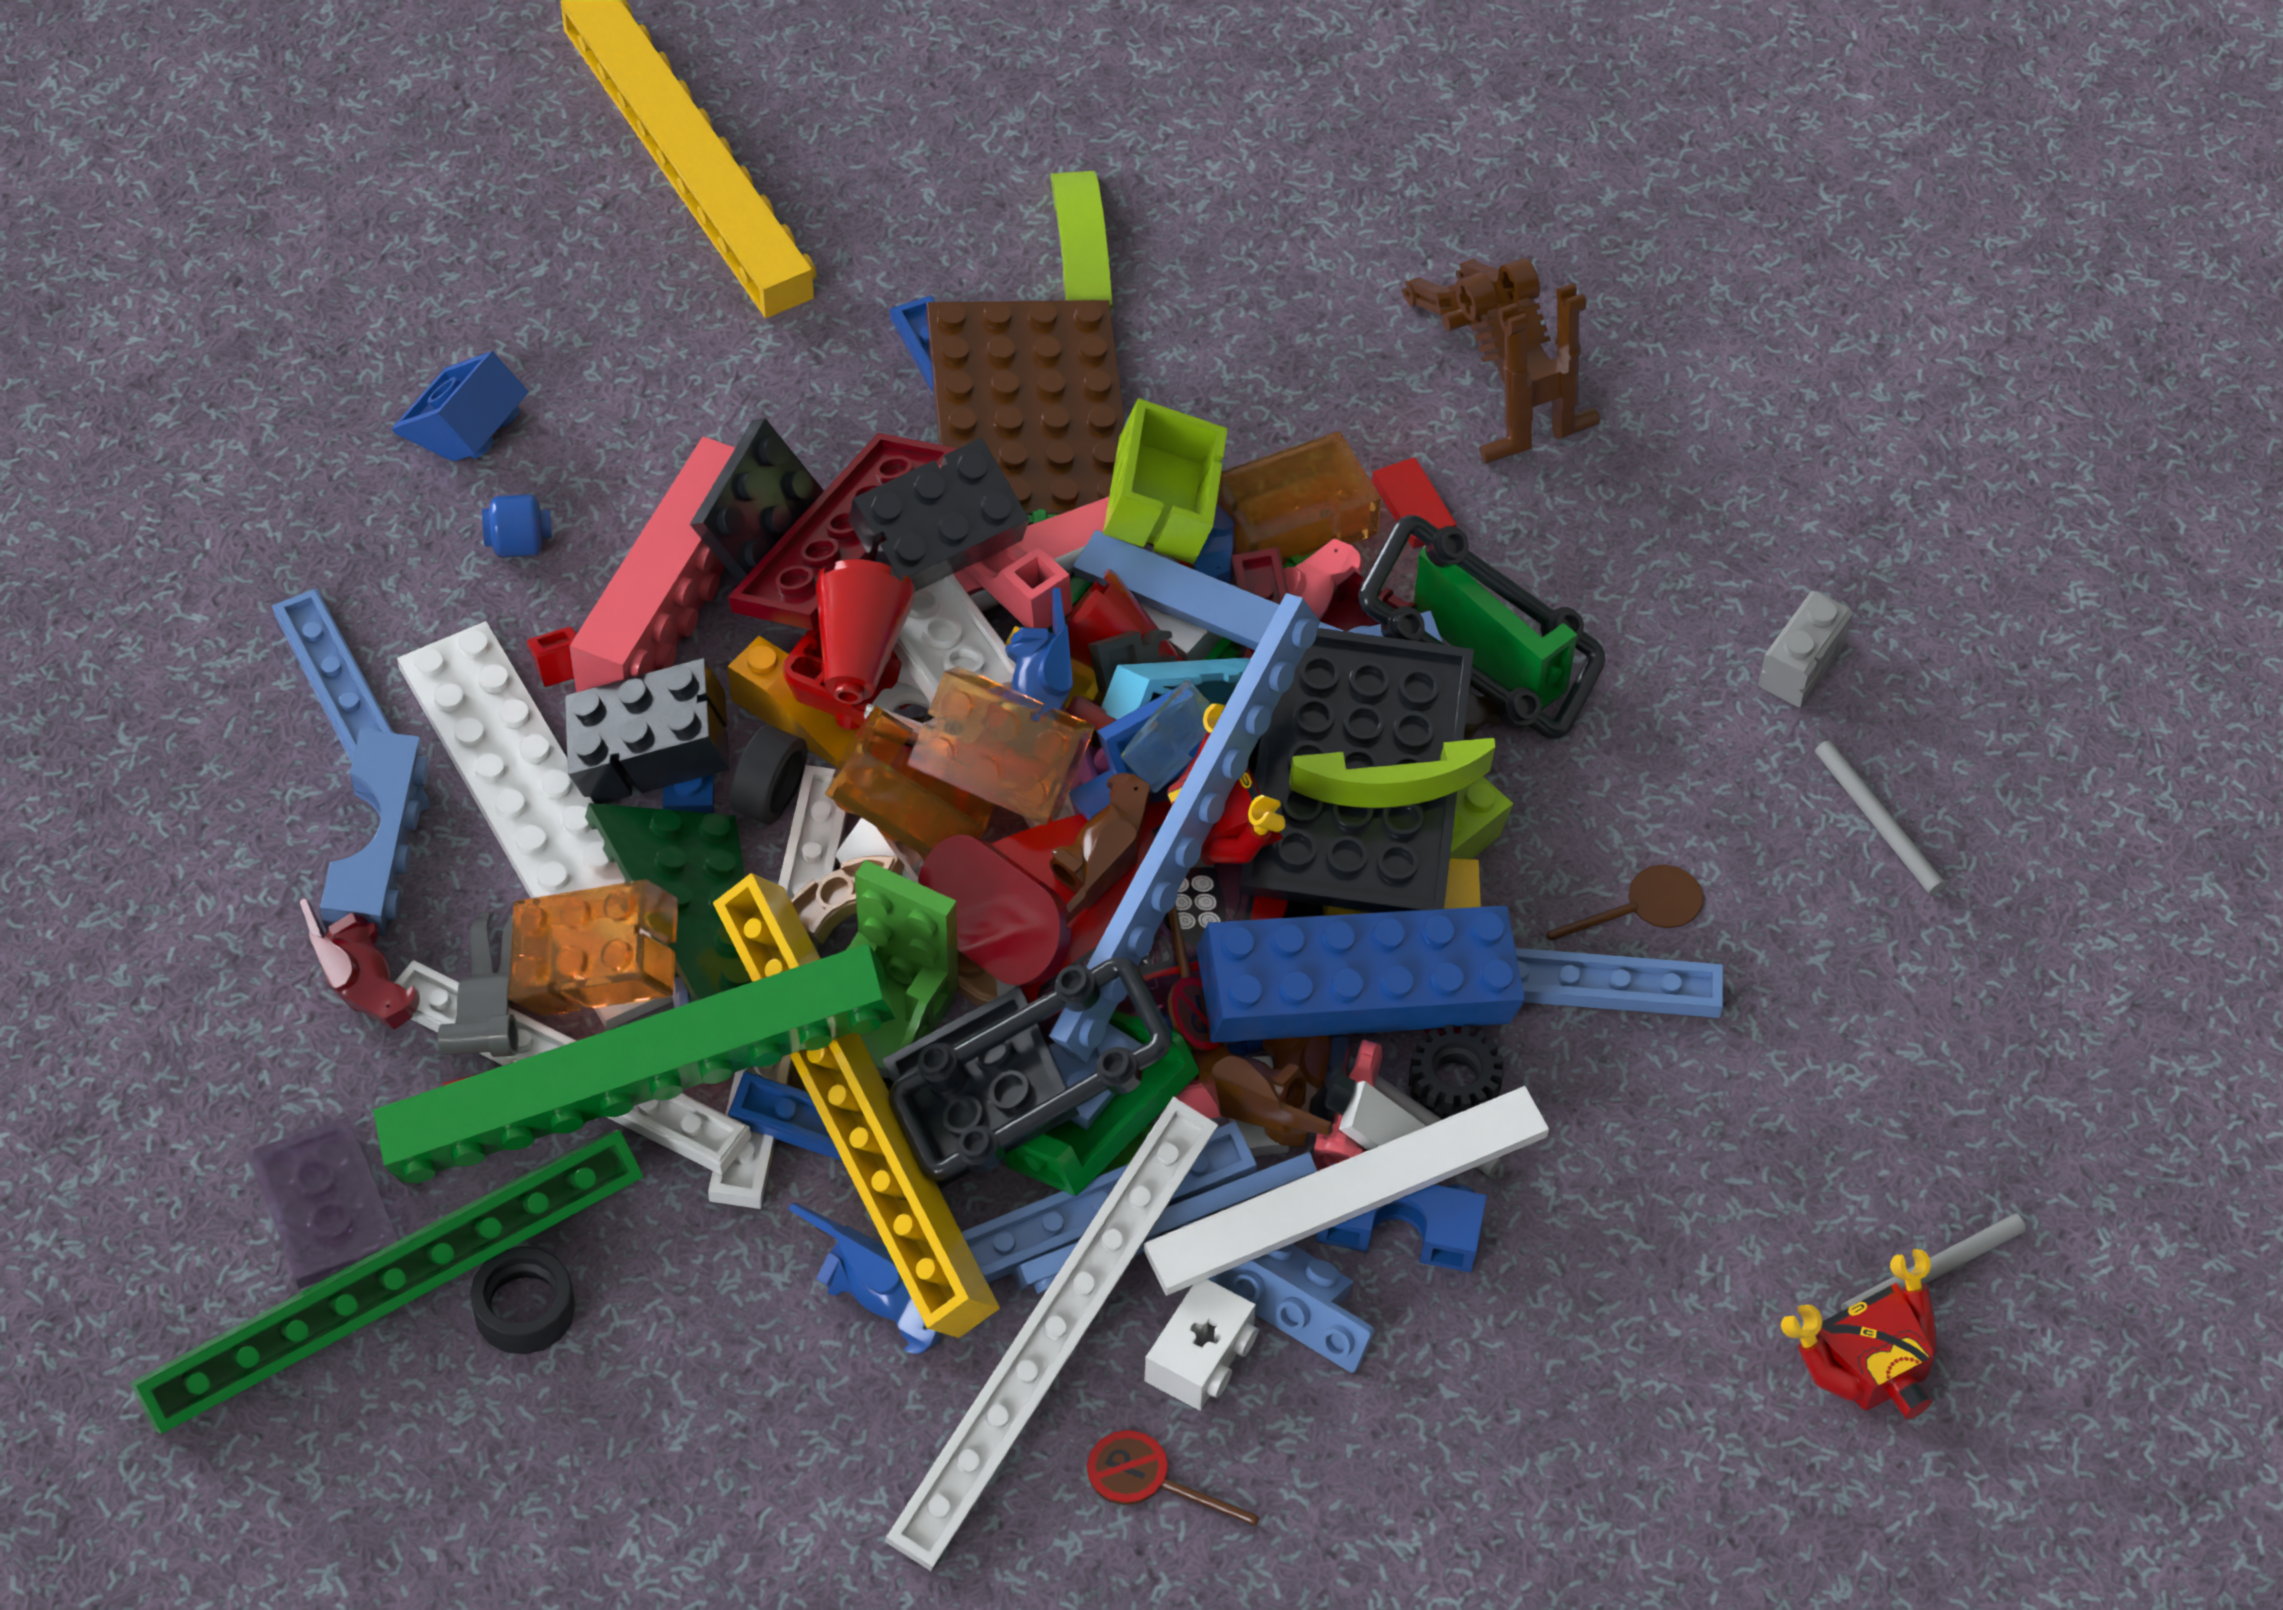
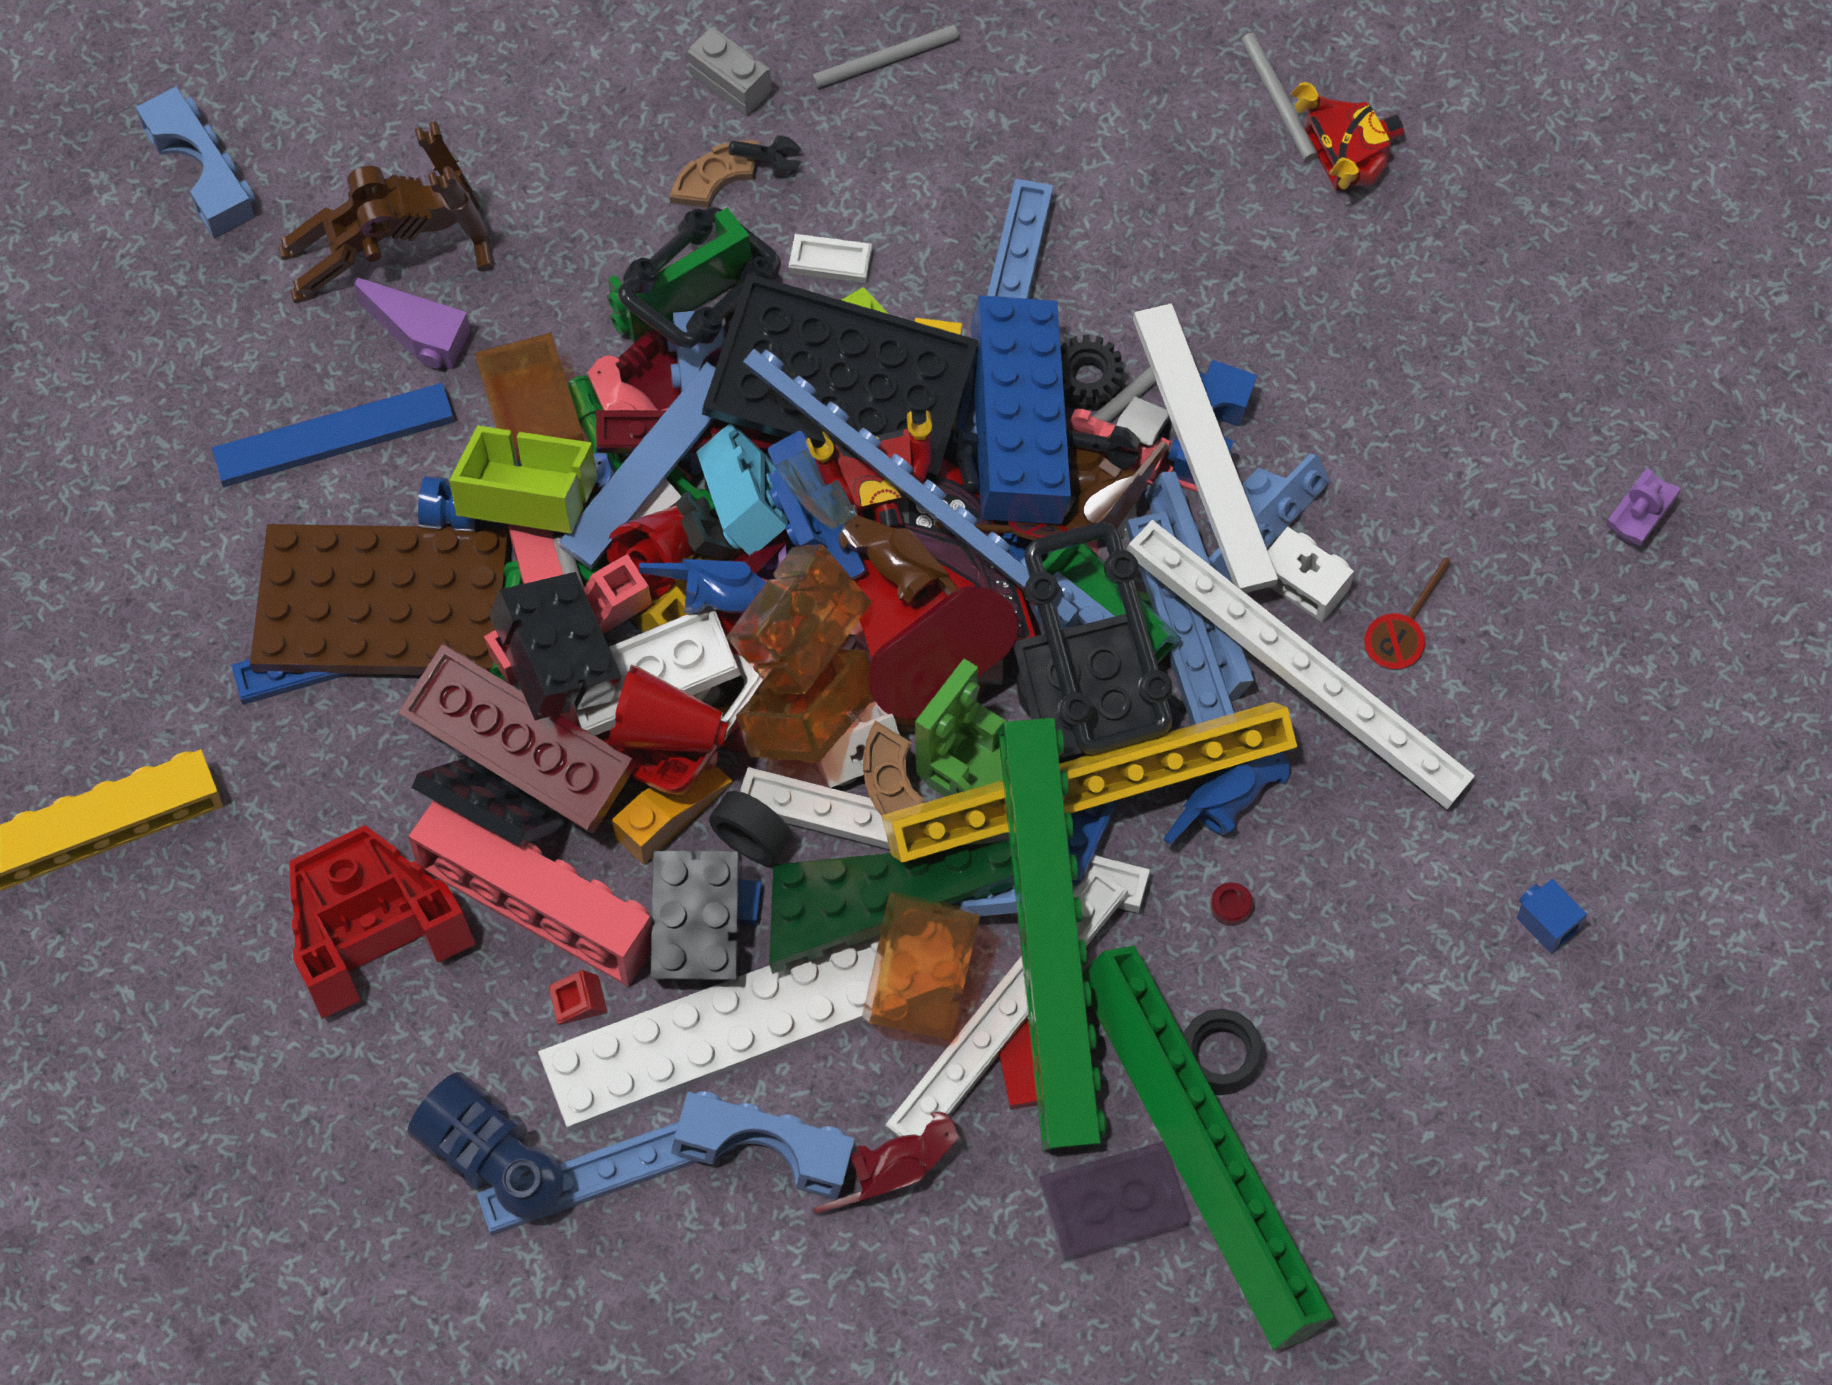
camera: 80 degrees left, 10 degrees up
(359, 569) = (485, 1146): none -> dark blue cylinder
(464, 408) = (293, 1061): blue slope -> none
(482, 1001) = (932, 1061): dark grey flag -> none
(515, 525) = (442, 1018): blue head -> none
(628, 435) = (360, 903): none -> red wedge
(729, 1302) = (1231, 904): none -> dark red tile
(1082, 236) = (185, 534): lime slope -> none
(1236, 346) = (332, 434): none -> blue tile
(1327, 780) = (867, 304): lime slope -> none
(1384, 395) = (423, 327): none -> medium lavender slope
(1410, 492) = (527, 322): red tile -> none
(1518, 199) = (175, 128): none -> medium blue arch
(1570, 790) = (830, 258): none -> white tile
(1658, 895) = (938, 214): reddish brown piece -> none
(1672, 662) = (710, 173): none -> medium nougat tile
(1698, 704) = (771, 154): none -> black bar

